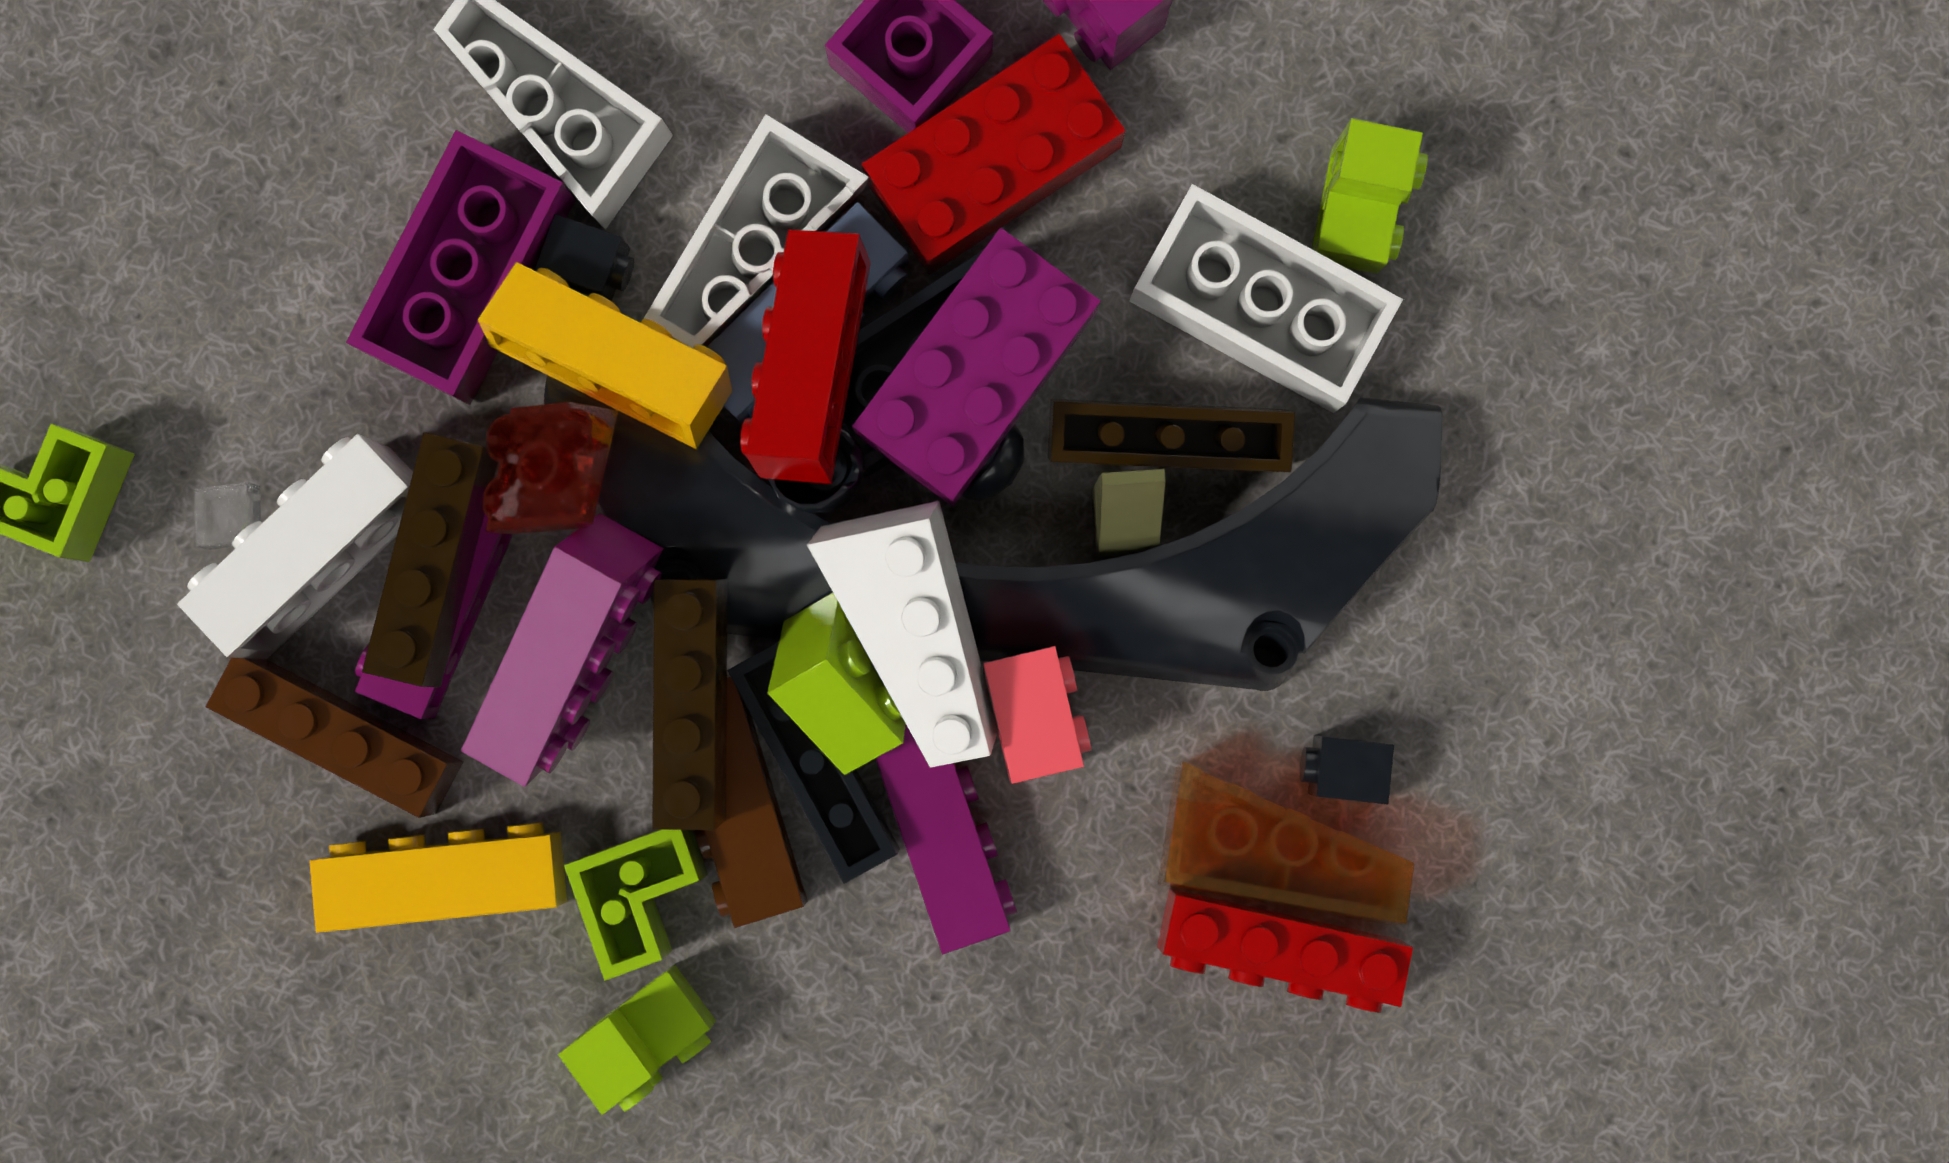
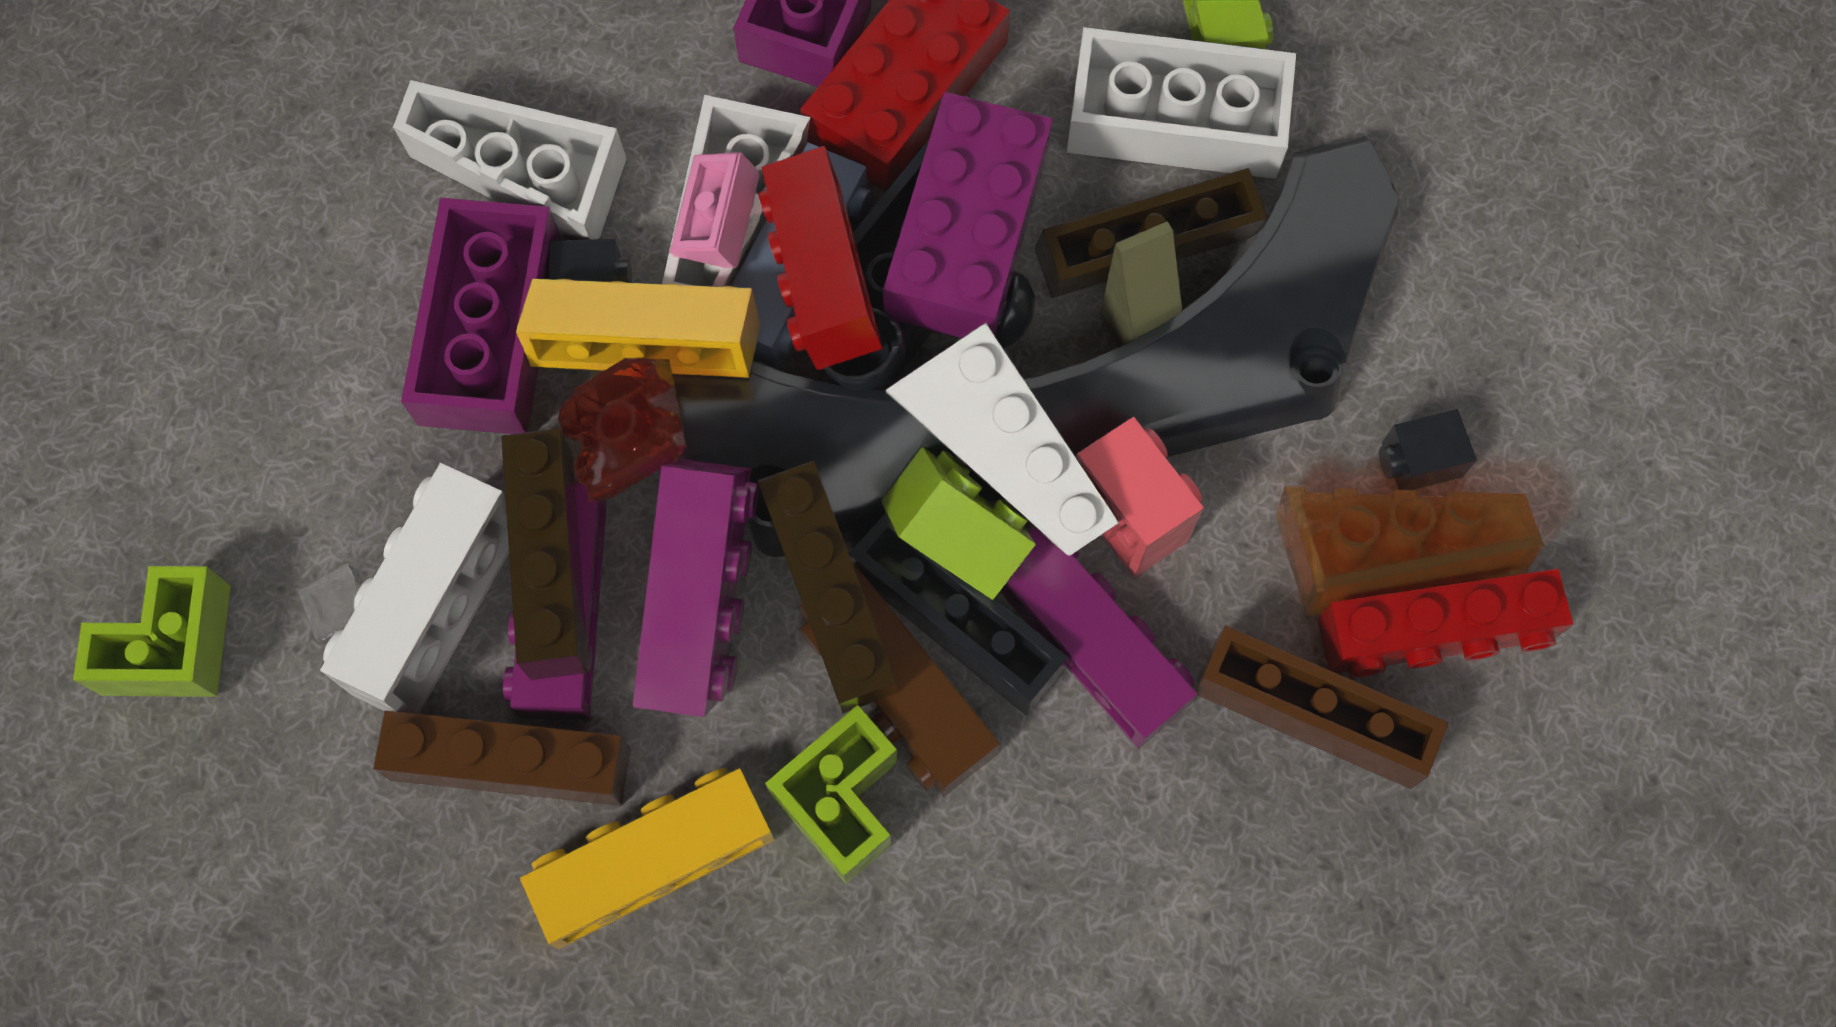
camera: 20 degrees left, 15 degrees down
(625, 1049) = (894, 927): lime brick -> none
(728, 253) = (715, 209): none -> bright pink slope
(1123, 987) = (1321, 708): none -> reddish brown brick

